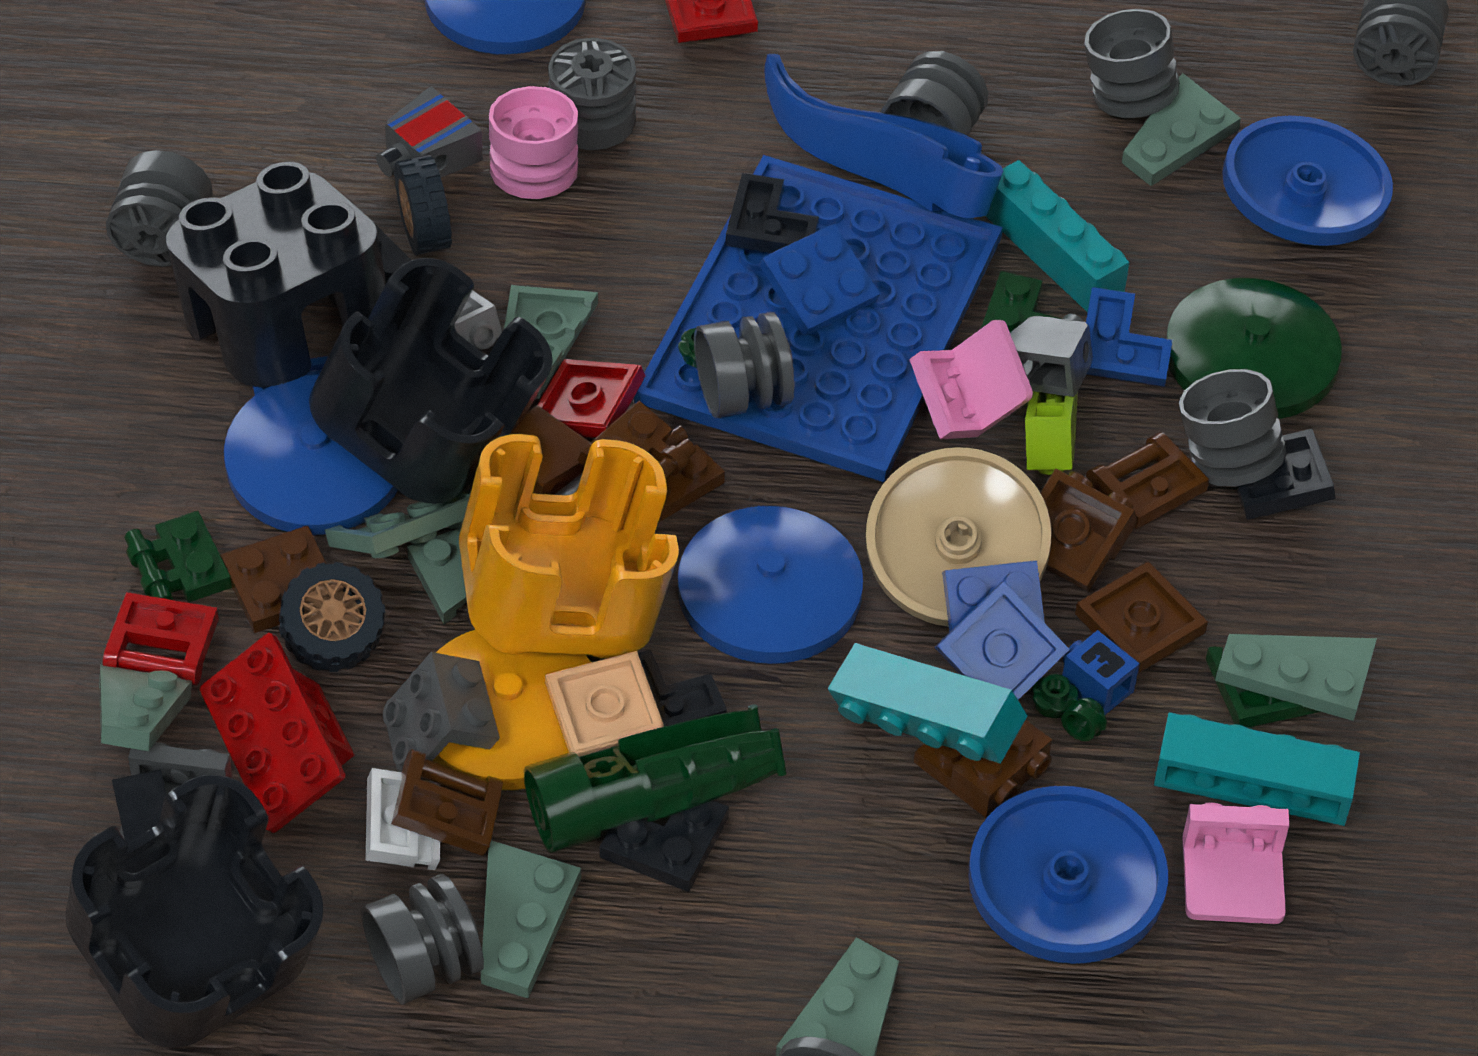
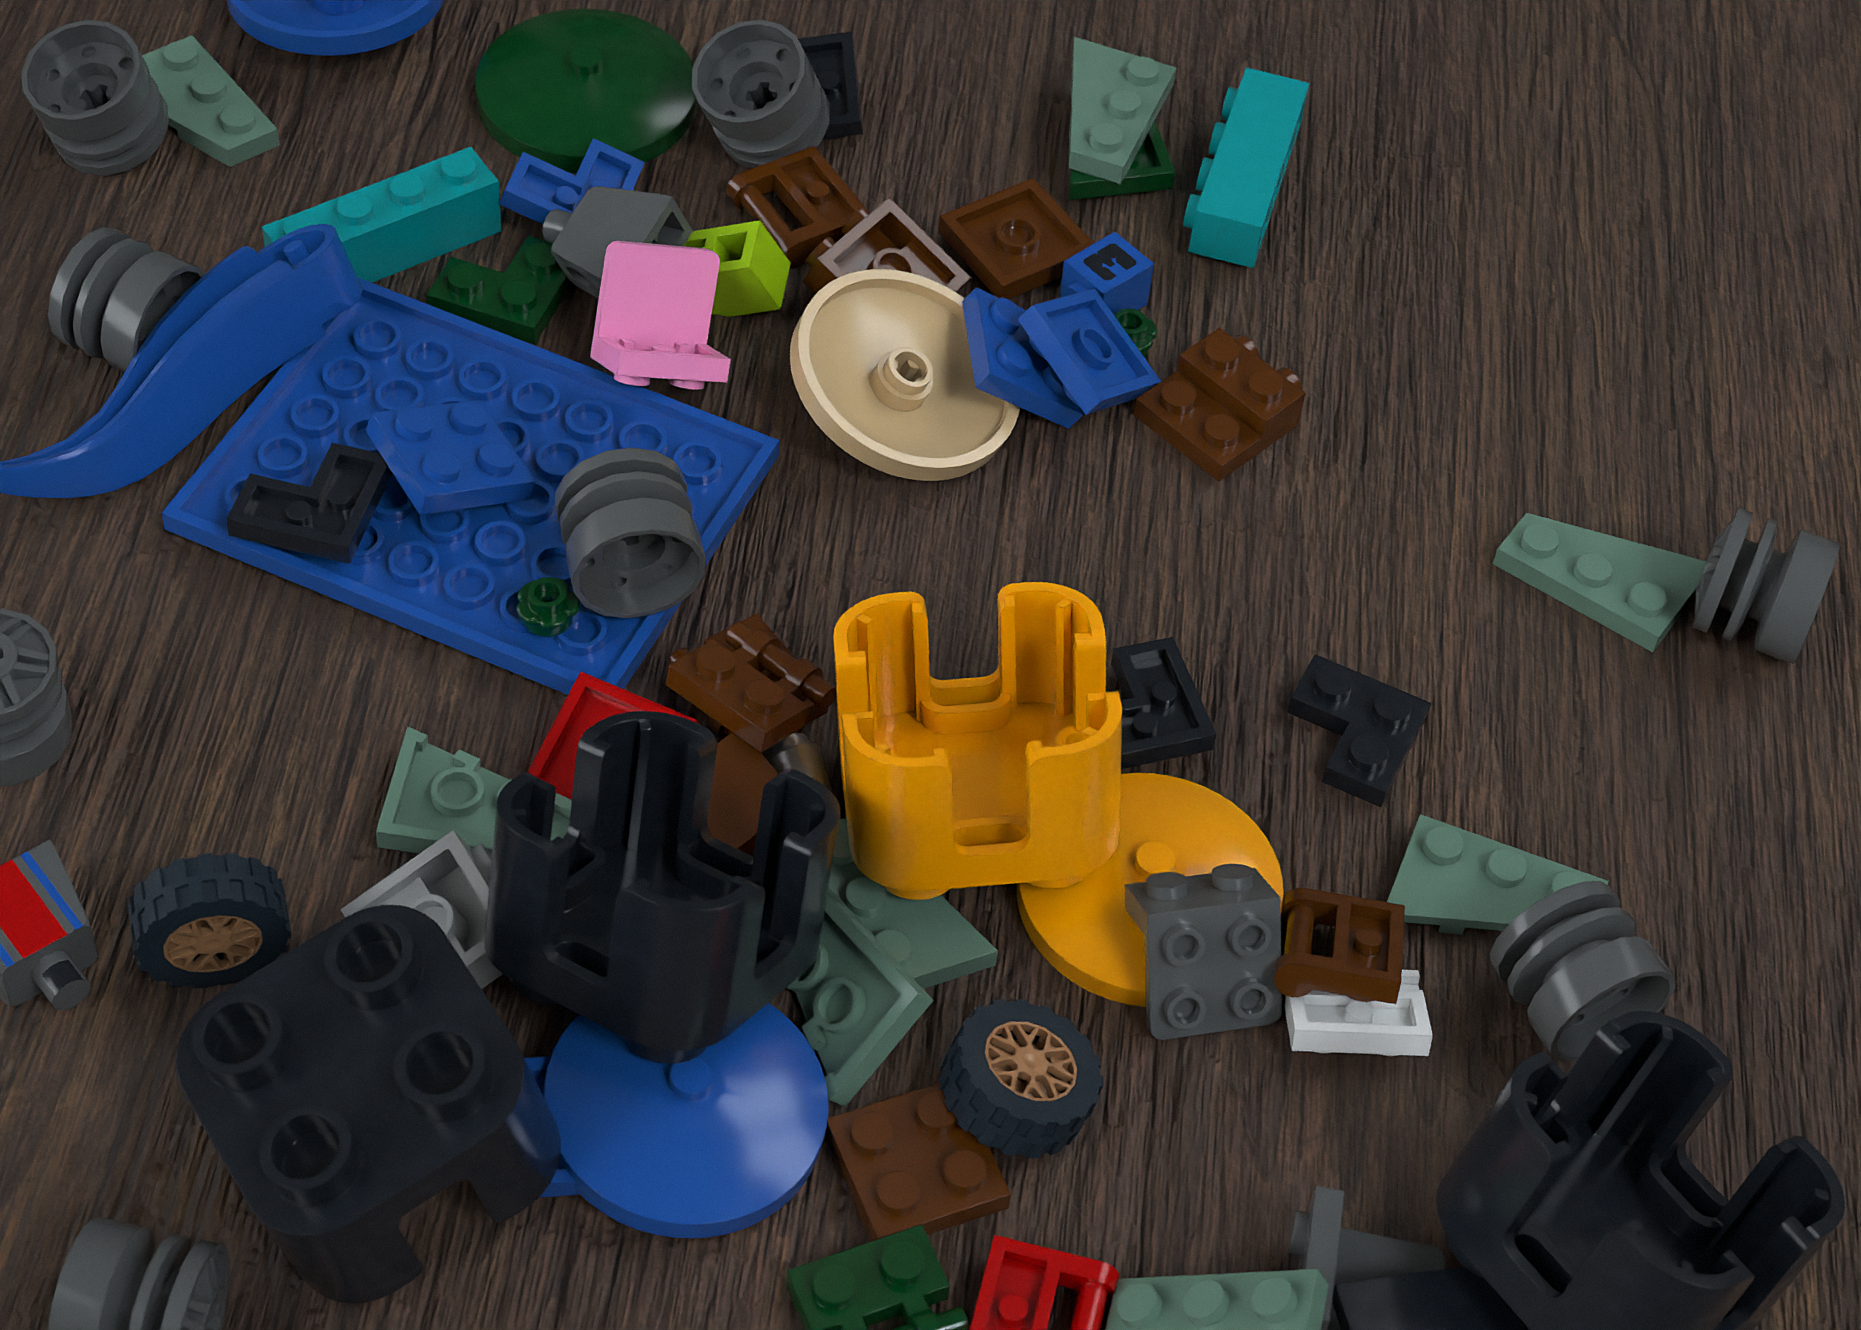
camera: 90 degrees left, 0 degrees up
(277, 730) = (1221, 1160): red bracket -> none
(533, 142) = (92, 772): bright pink wheel -> none
(602, 703) = (1188, 757): light nougat plate -> none
(650, 776) = (1341, 800): dark green piece -> none
(770, 584) = (950, 550): blue dish -> none
(927, 703) = (1192, 418): teal brick -> none
(1068, 874) = (1410, 339): blue dish -> none
(1084, 718) = (1167, 308): dark green plate -> none
(1234, 863) = (1373, 213): bright pink bracket -> none

